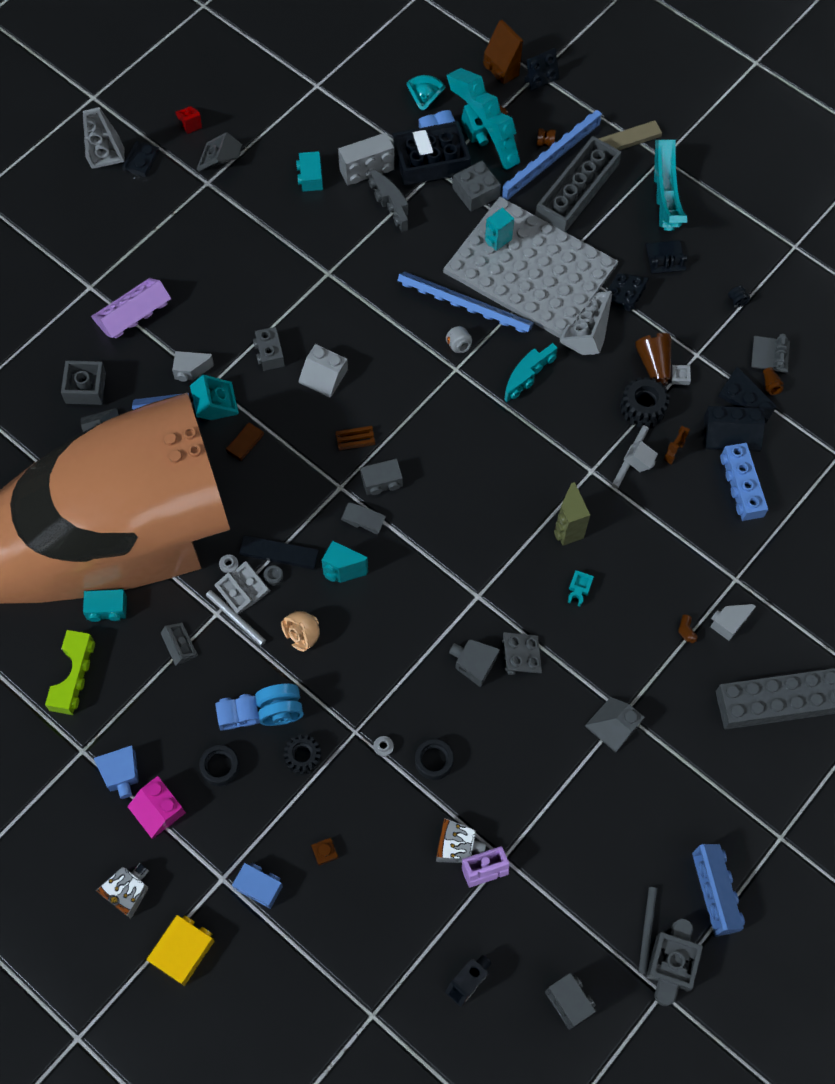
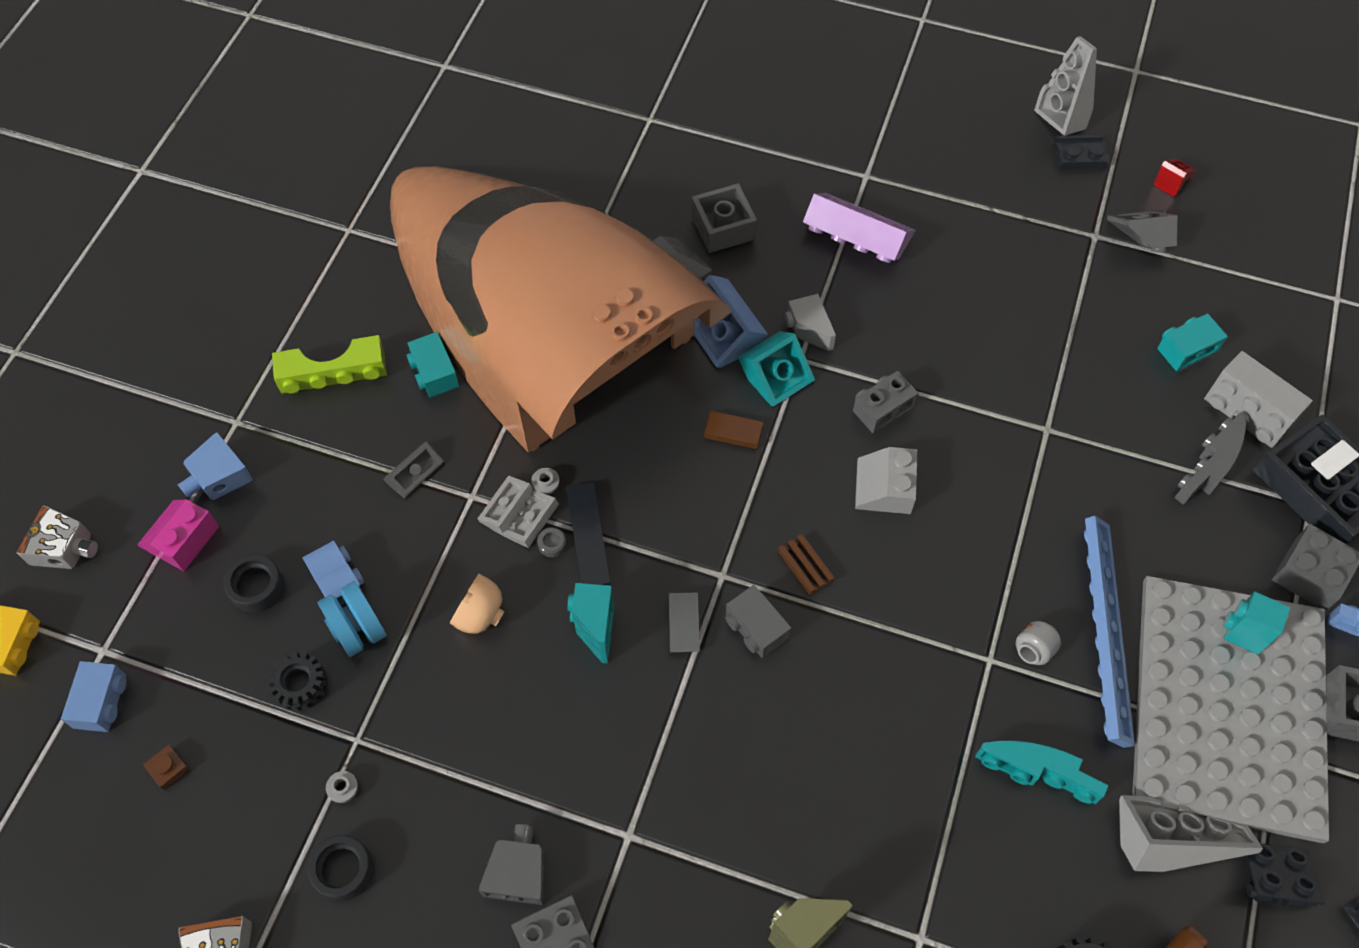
camera: 70 degrees right, 5 degrees down
(235, 617) = (471, 522): light grey bar -> none

